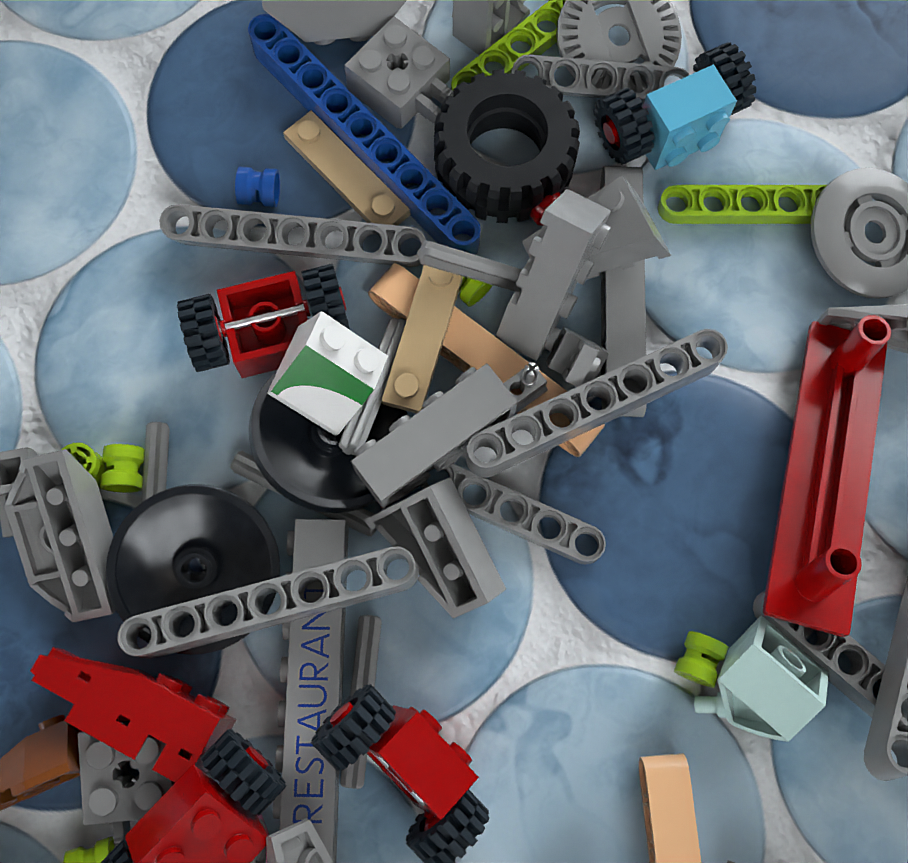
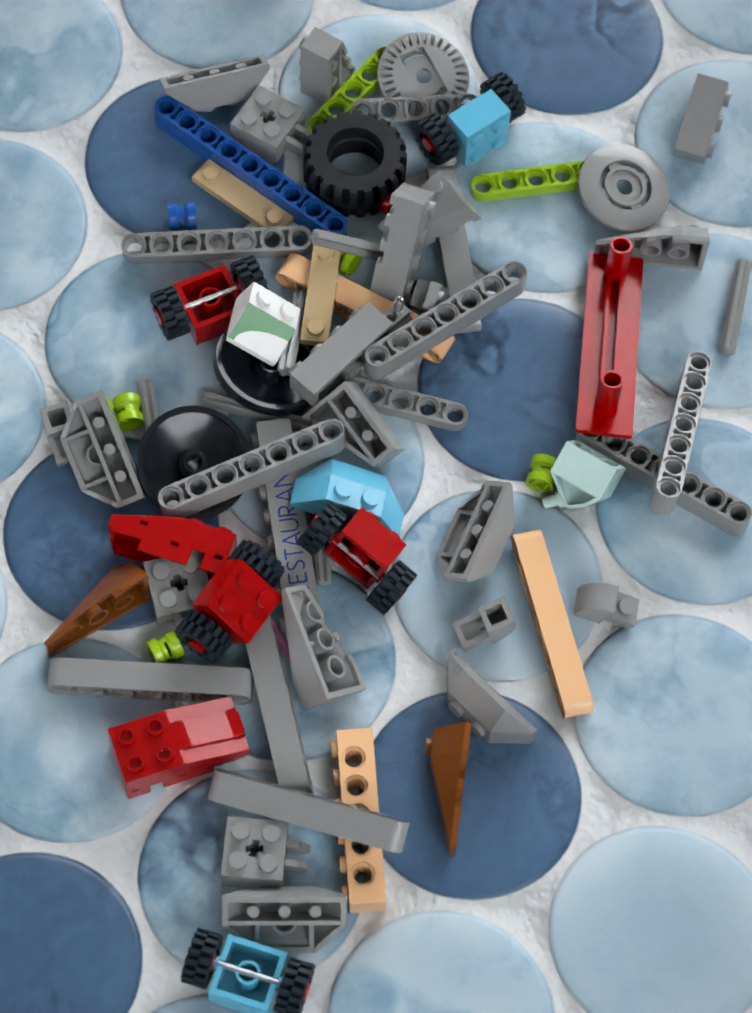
camera: 10 degrees left, 10 degrees down
(410, 660) = (349, 490): none -> medium azure wedge
(587, 755) = (478, 533): none -> light grey wedge

